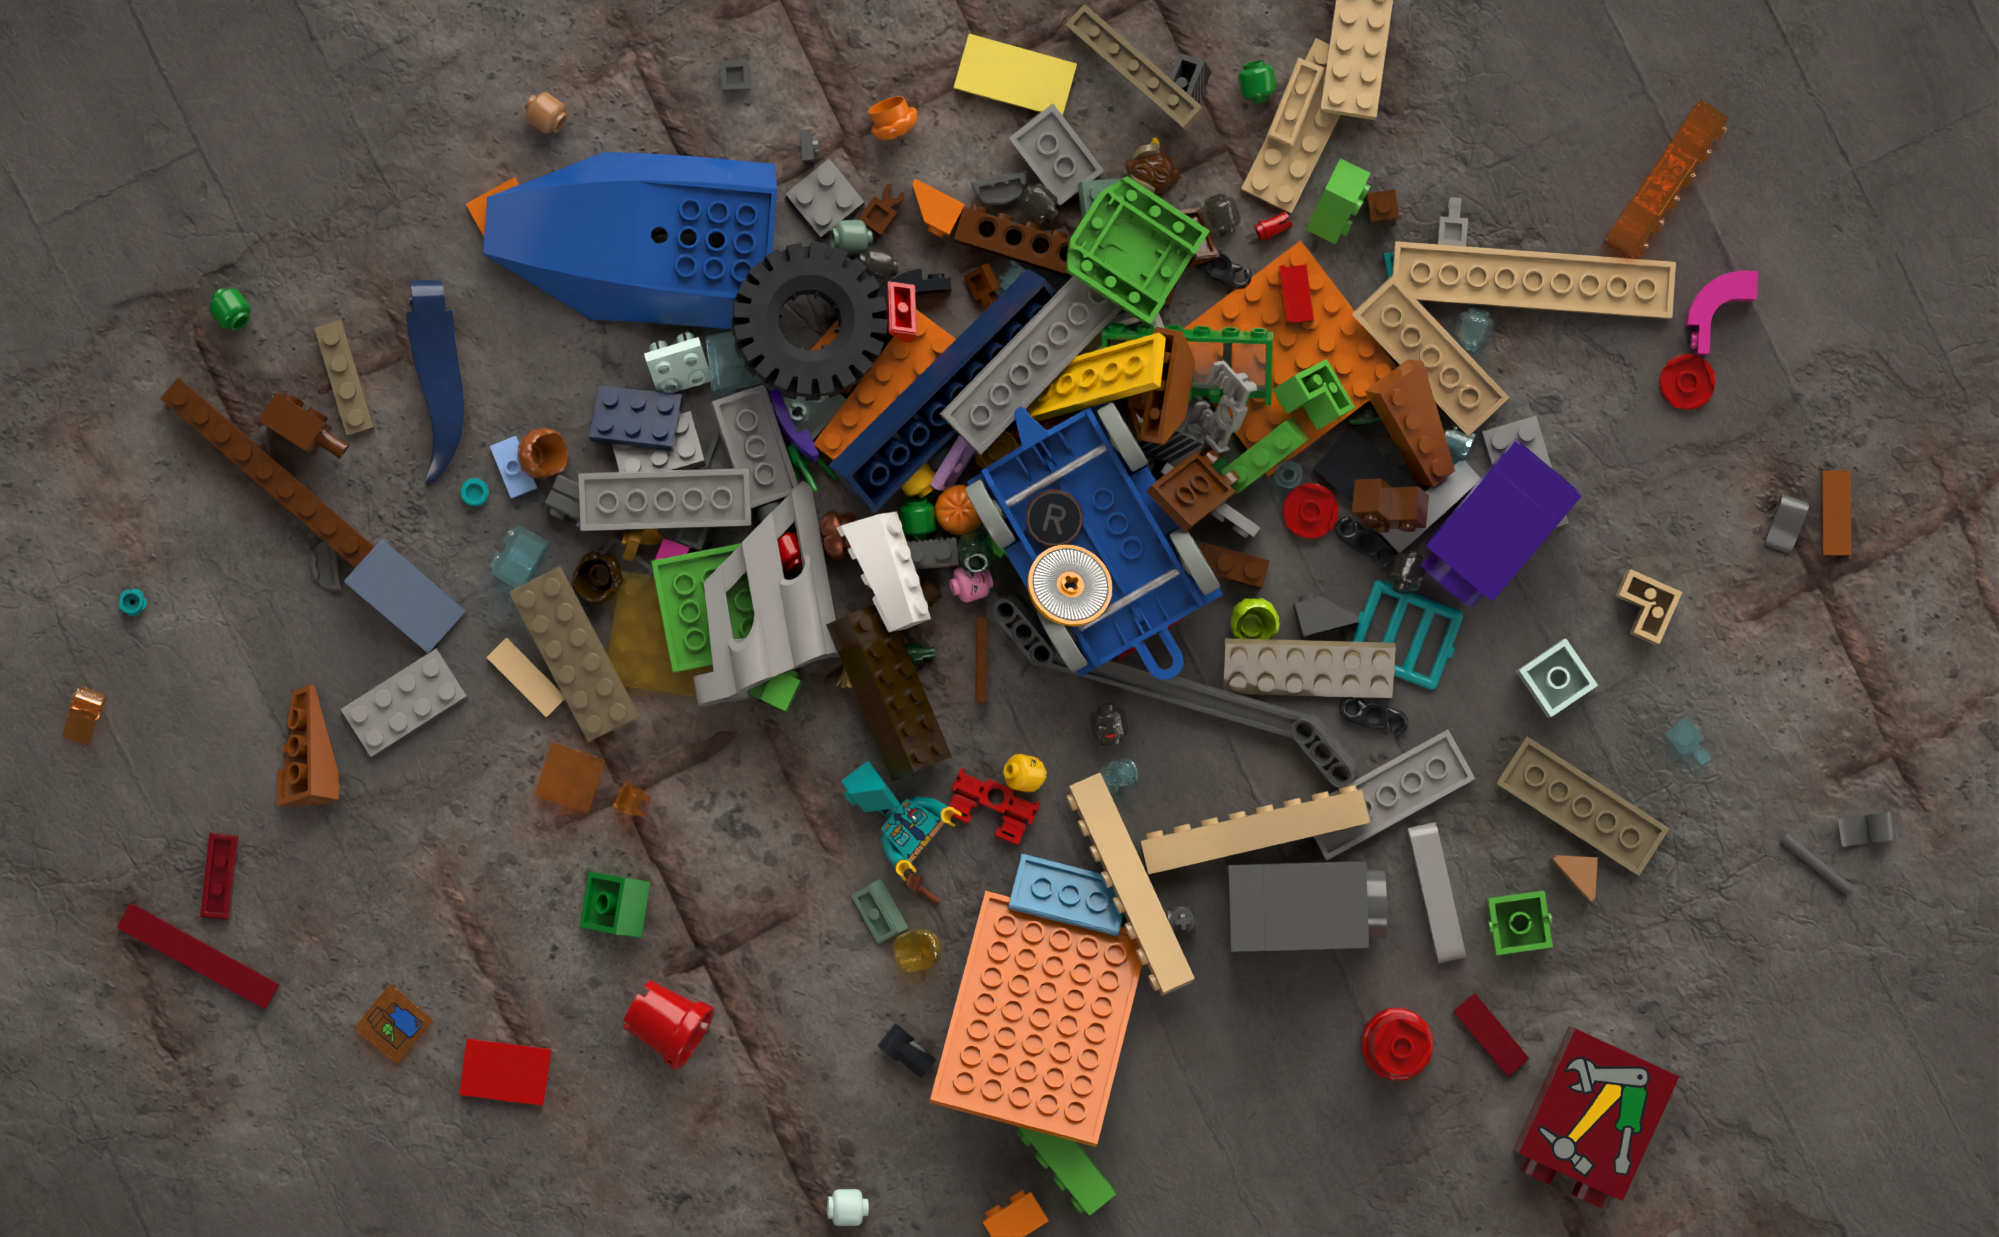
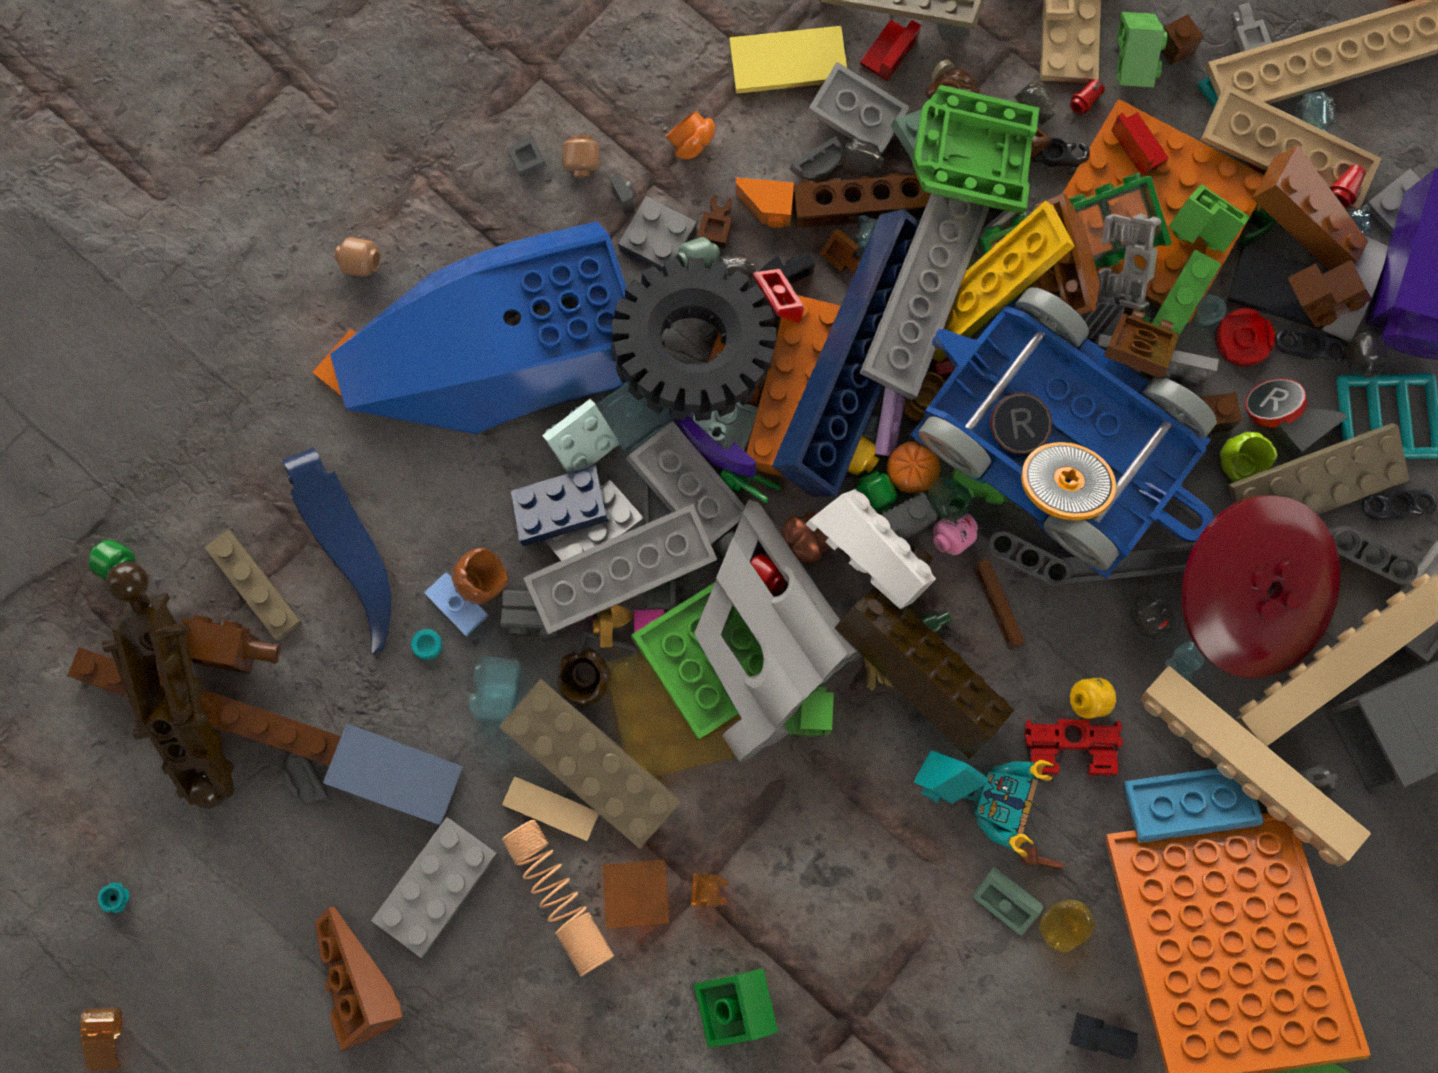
camera: 20 degrees left, 10 degrees down
(241, 483) = (173, 723): none -> dark brown piece
(508, 793) = (578, 935): none -> light nougat piece
(784, 96) = (580, 155): none -> medium nougat head
(1113, 104) = (891, 48): none -> red panel
(1199, 705) = (1229, 582): none -> dark red dish
(1304, 582) = (1276, 402): none -> tile
(1461, 413) = (1349, 185): none -> red cone

